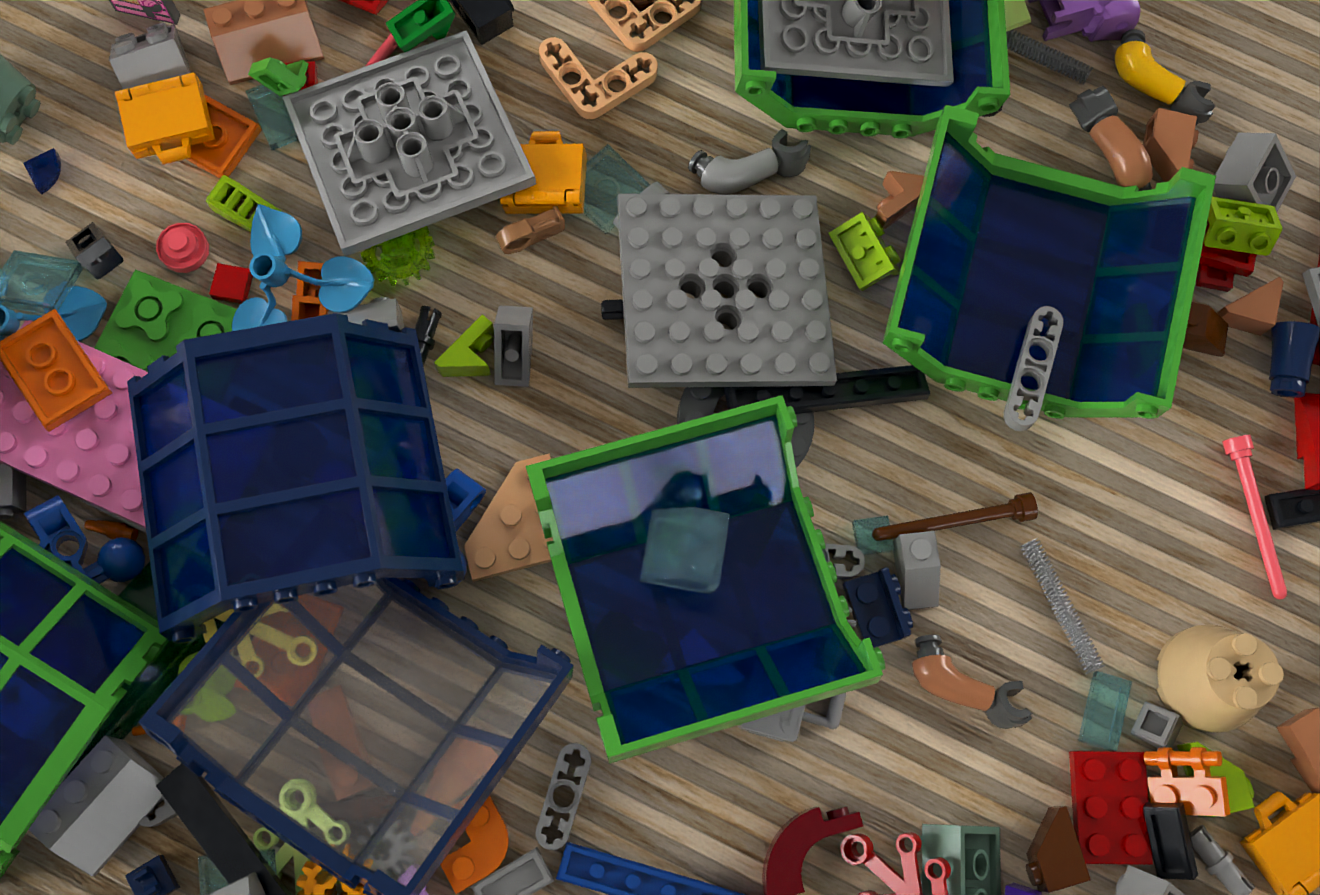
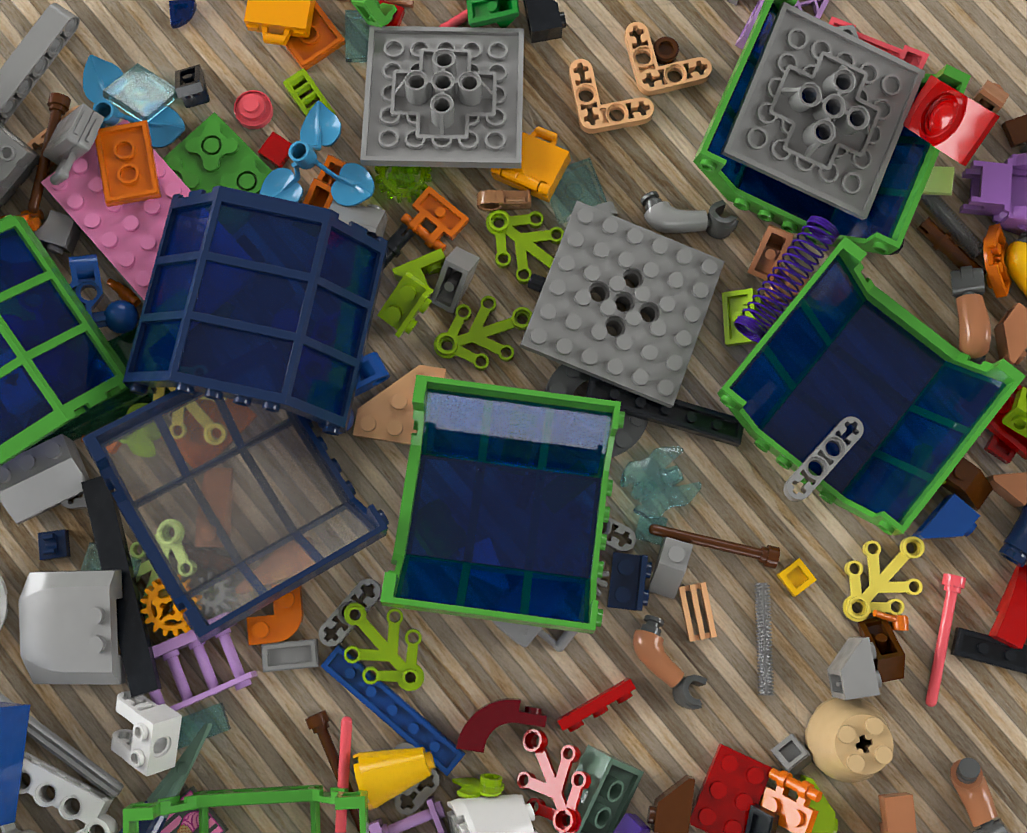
camera: 30 degrees right, 5 degrees up
(462, 277) = (438, 212): none -> orange plate
(468, 396) = (405, 303): none -> lime bracket
(570, 397) = (479, 334): none -> lime plant
(575, 269) = (523, 241): none -> lime plant
(630, 821) = (386, 650): none -> lime plant
(685, 548) = (505, 480): clear light blue slope -> none
(856, 481) = (655, 484): none -> clear light blue piece
(863, 165) = (770, 250): none -> nougat slope
(879, 245) = (818, 234): none -> dark purple piece
(909, 772) = (596, 705): none -> red plate
(982, 601) = (707, 608): none -> light nougat tile
(1046, 79) = (944, 243): none -> reddish brown pin
(1063, 518) = (796, 577): none -> yellow tile
(1104, 61) = (994, 252): none -> orange plate
(1105, 711) = (759, 727): clear light blue tile -> none
(1157, 481) = (879, 581): none -> light yellow plant
(1183, 594) = (853, 670): none -> light grey slope
(1199, 557) = (889, 654): none -> reddish brown slope
(1200, 378) = (948, 520): none -> blue slope
(1201, 518) = (898, 622): none -> orange hand

